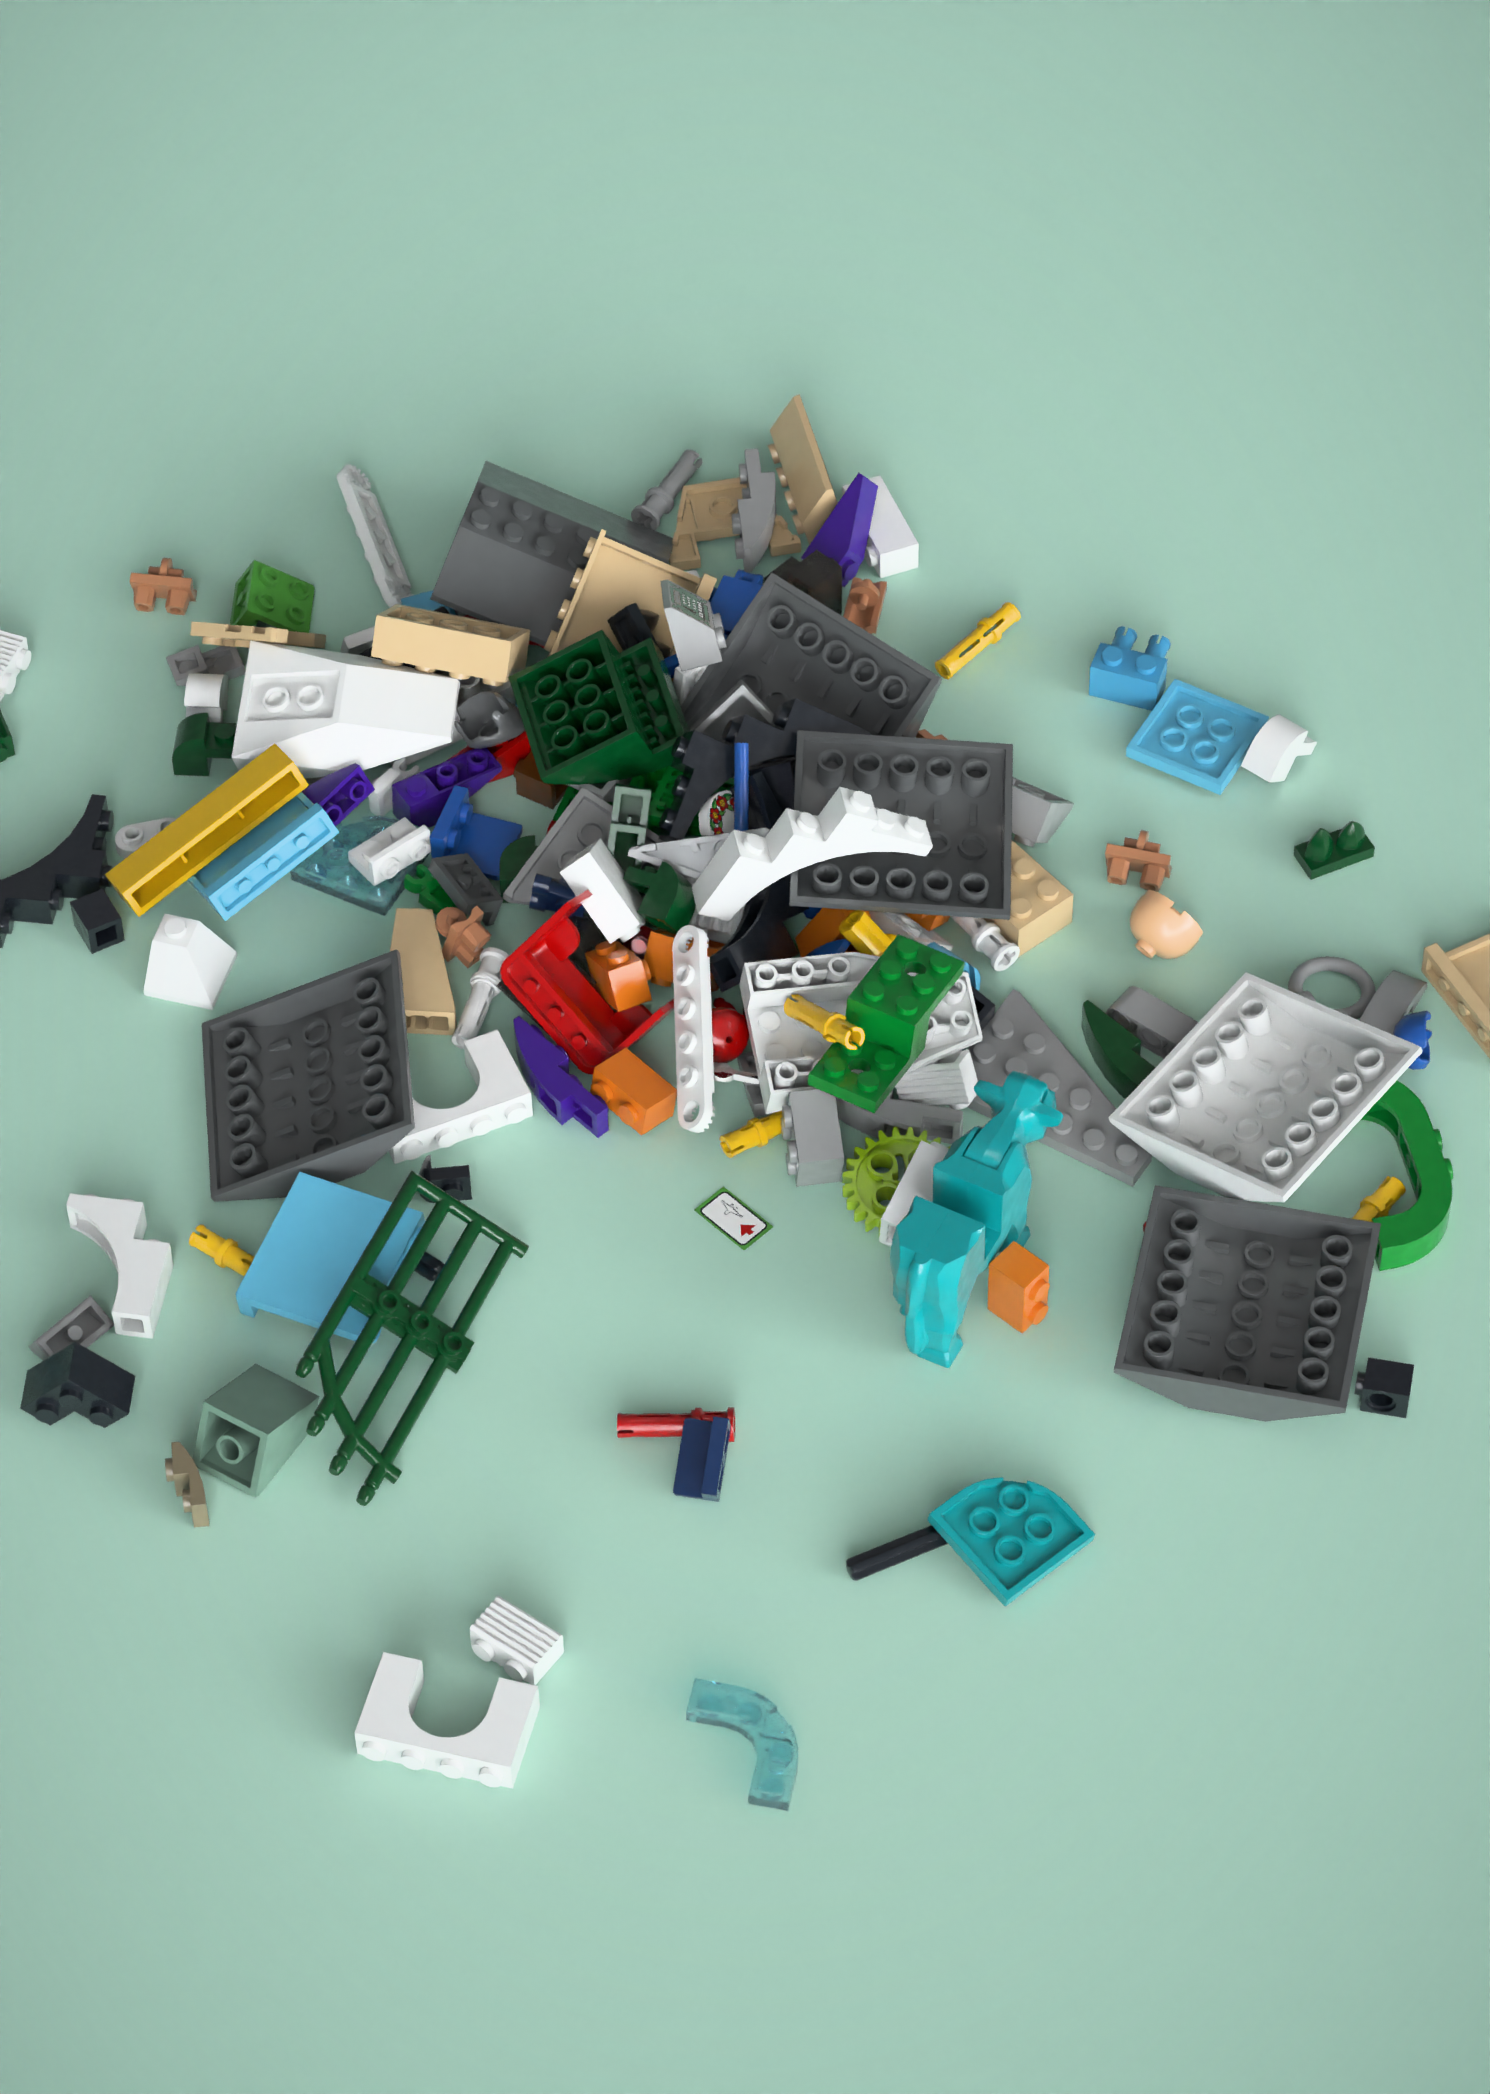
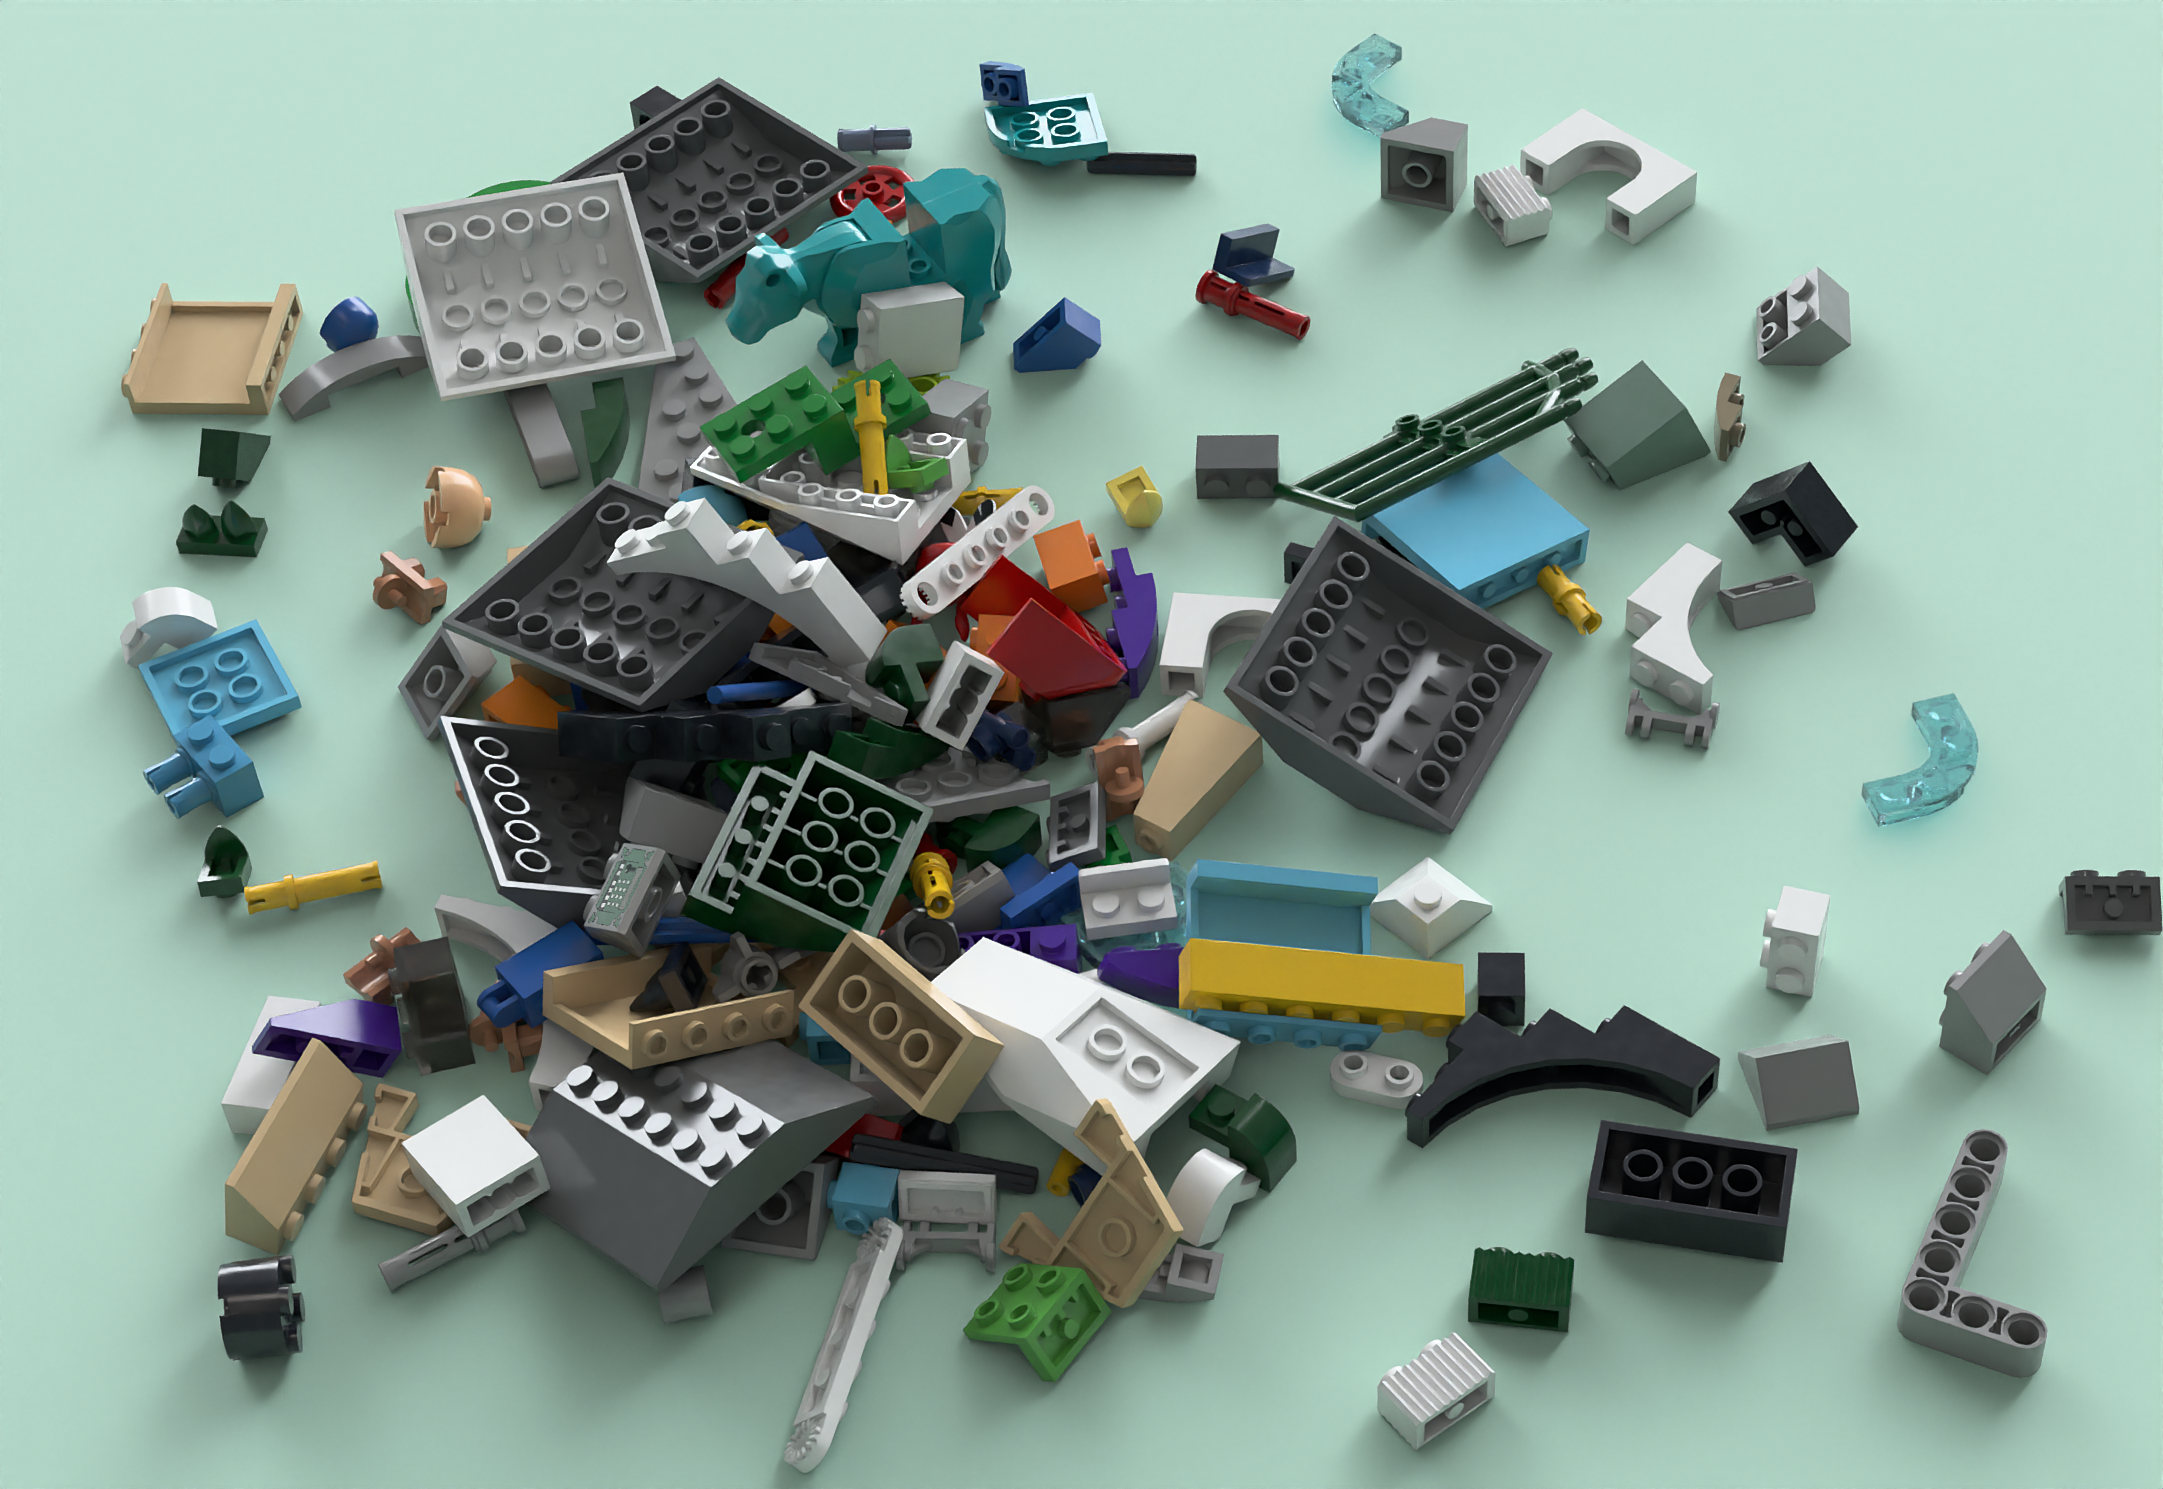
camera: 145 degrees left, 5 degrees down
(107, 1183) = (1643, 716): none -> light grey piece
(163, 583) = (1155, 1403): nougat hips -> none
(171, 1617) = (1804, 322): none -> light grey slope
(338, 632) = (973, 1241): none -> light grey piece
(504, 801) = (978, 899): none -> light grey slope
(529, 787) = (933, 892): none -> yellow pin
(572, 1251) = (1237, 466): none -> dark grey brick
(614, 1626) = (1425, 163): none -> light grey slope
(633, 1187) = (1136, 498): none -> light yellow plate
(677, 502) = (476, 1165): none -> white brick
(733, 1218) = (1062, 458): white sticker -> none
(737, 390) = (260, 1308): none -> black brick
(755, 511) = (394, 1112): light grey slope -> none
(785, 1039) = (909, 473): none -> bright green plate
(814, 1305) = (1058, 340): none -> blue slope
(1046, 621) = (225, 865): none -> dark green plate
(1077, 1547) = (1004, 83): none -> blue slope
(1127, 1430) = (877, 191): none -> red plate
(1169, 1459) = (874, 139): none -> sand blue axle
(1337, 965) = (404, 410): light grey piece -> none
(1394, 905) = (230, 455): none -> dark green slope

